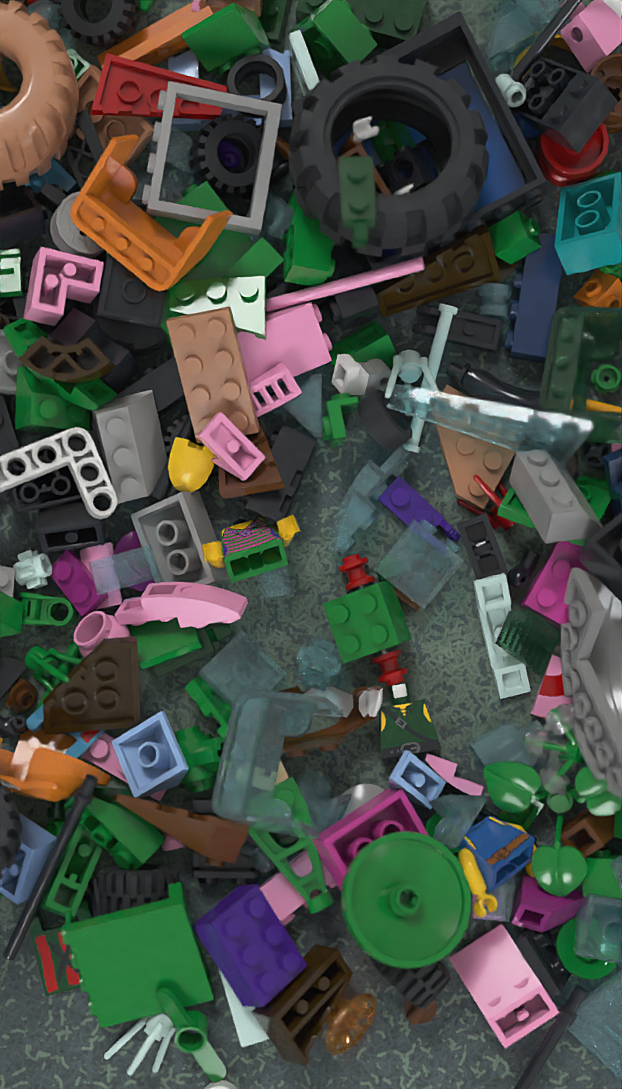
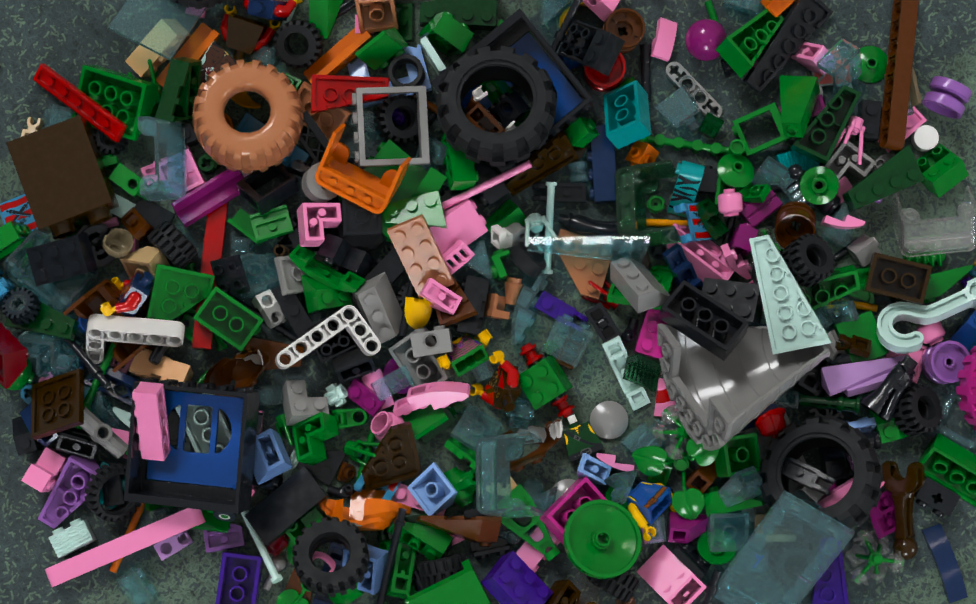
camera: 15 degrees left, 0 degrees up
(68, 363) = (335, 268): dark brown brick -> none
(180, 520) = (420, 346): none -> light grey brick
(300, 614) = (502, 387): none -> torso
(316, 486) = (495, 307): none -> nougat panel
(350, 463) = (512, 289): none -> nougat cone
(357, 197) = (484, 138): dark green hinge -> none
(458, 704) = (609, 420): none -> light grey dish
(512, 91) = (561, 47): light aqua pin -> none

